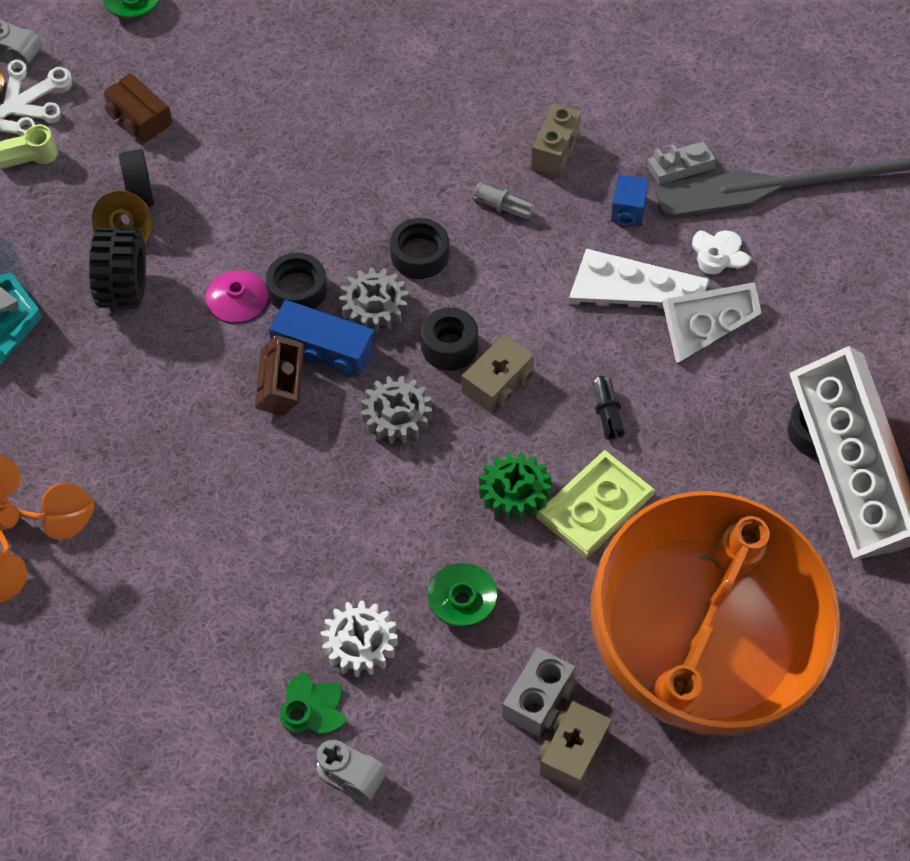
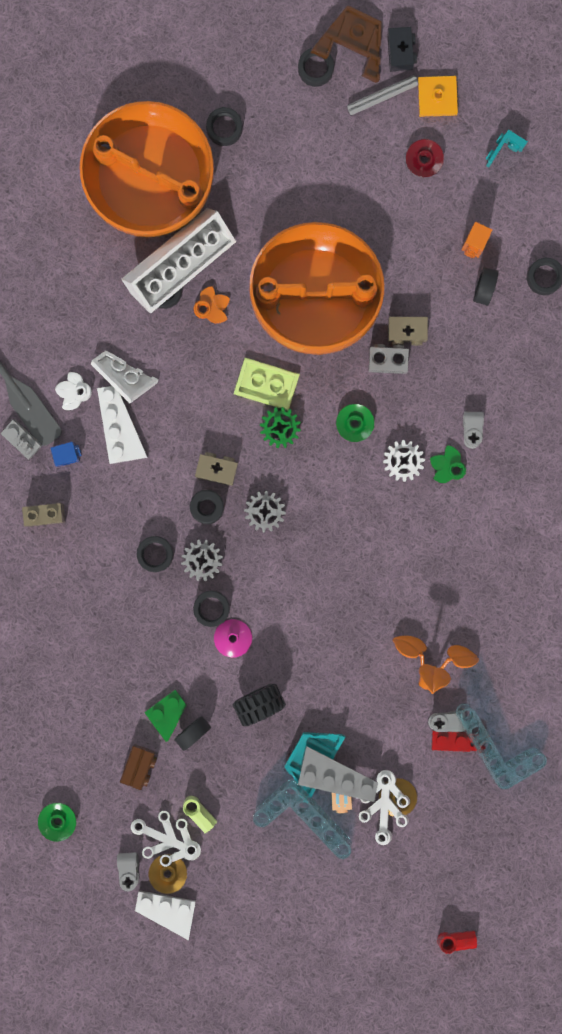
camera: 115 degrees left, 30 degrees up
(112, 205) = (222, 725): pearl gold dish -> none
(185, 173) = (166, 714): none -> green wing
(279, 375) = (278, 581): reddish brown brick -> none
(325, 337) = (241, 574): blue brick -> none
(502, 201) = (98, 525): light grey axle -> none
(608, 407) = (206, 404): black axle -> none
(759, 484) = (215, 305): none -> orange plate

